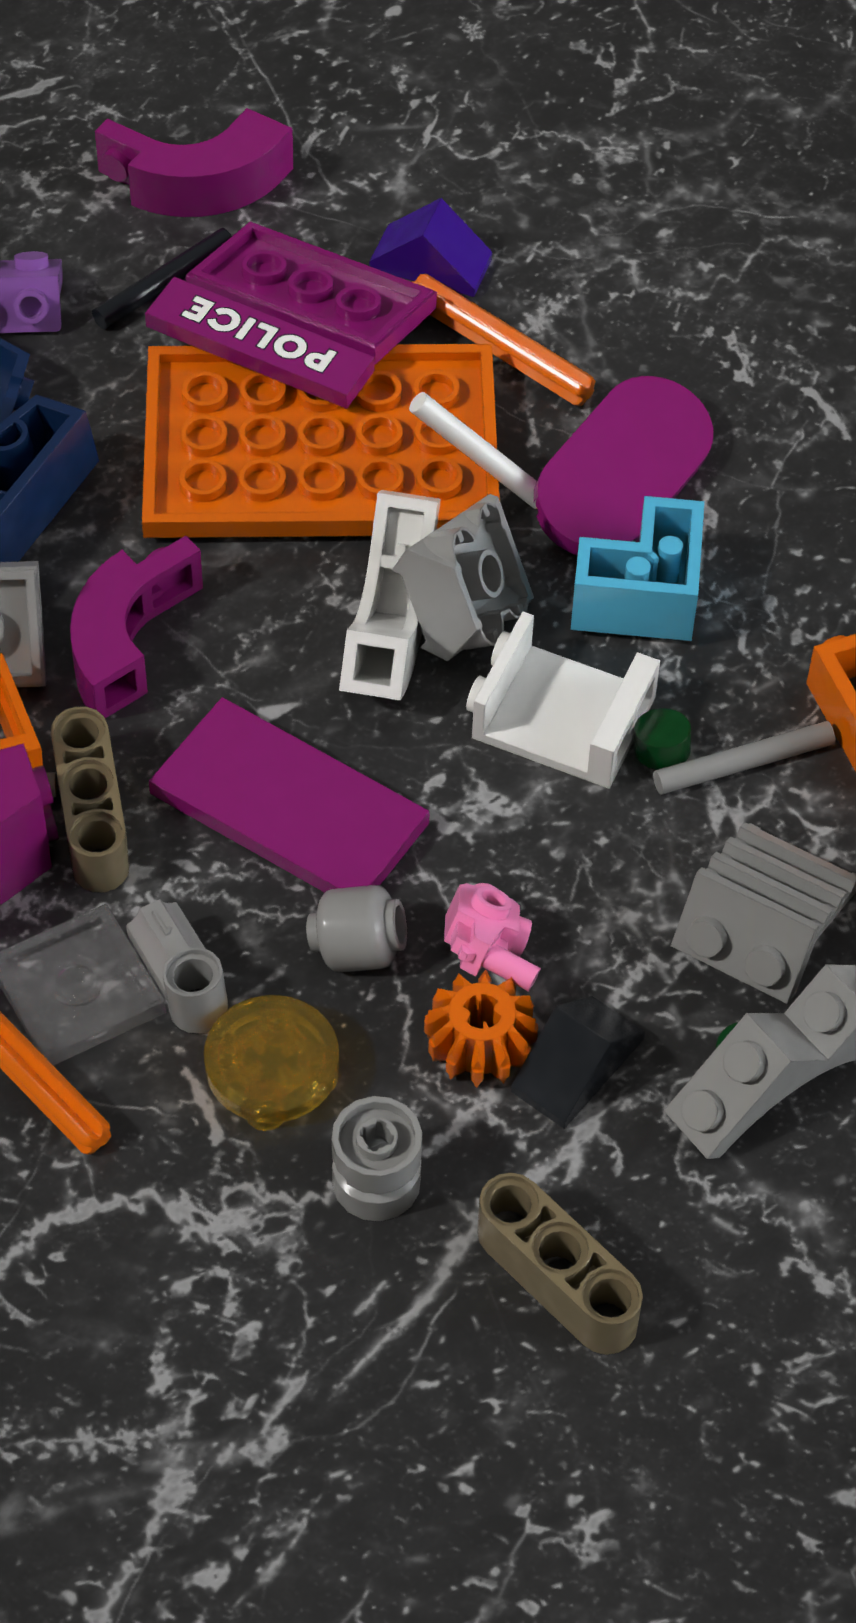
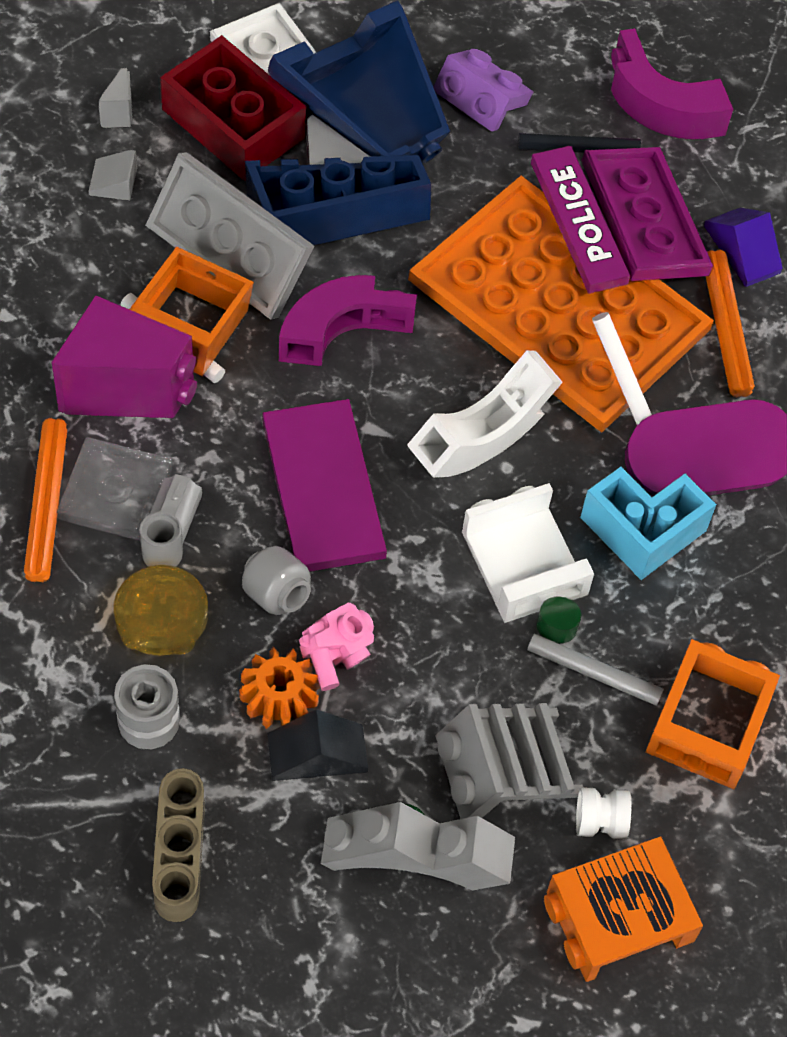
camera: 40 degrees right, 5 degrees up
(93, 822) = (219, 414): dark tan beam -> none
(466, 580) = (539, 440): light grey slope -> none

